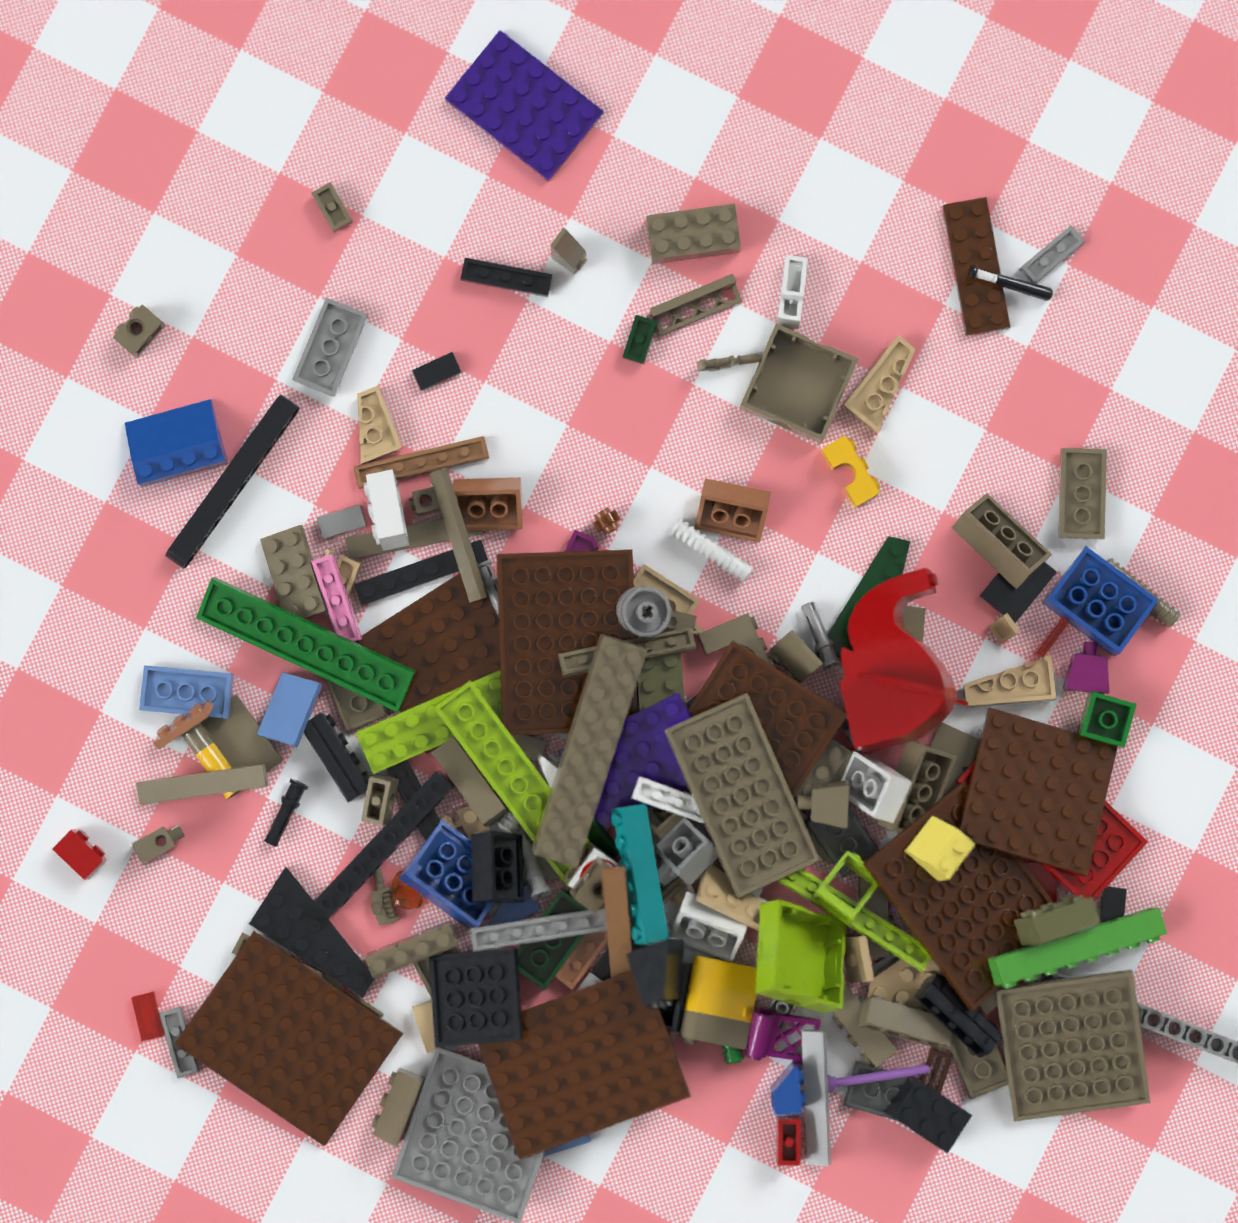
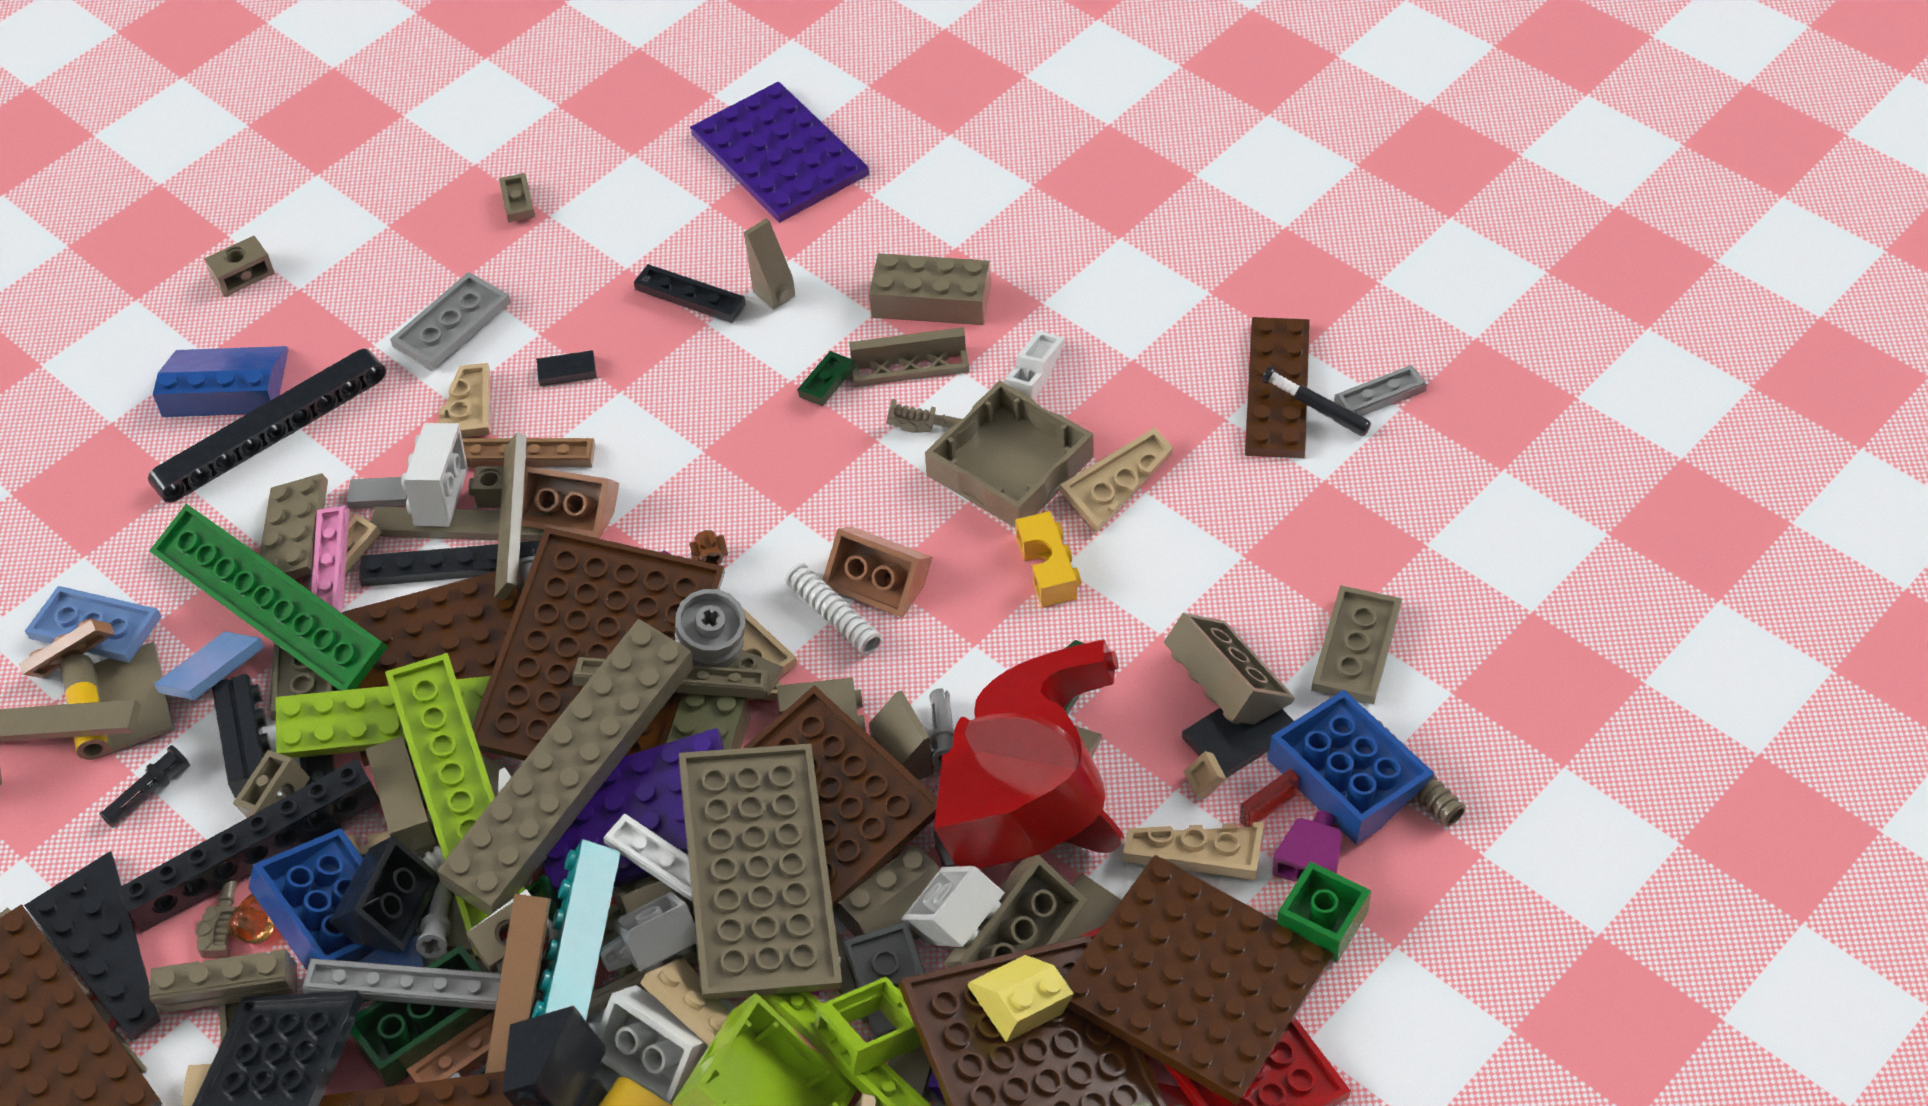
camera: 20 degrees right, 35 degrees down
(828, 803) = (879, 909): dark tan torso -> none

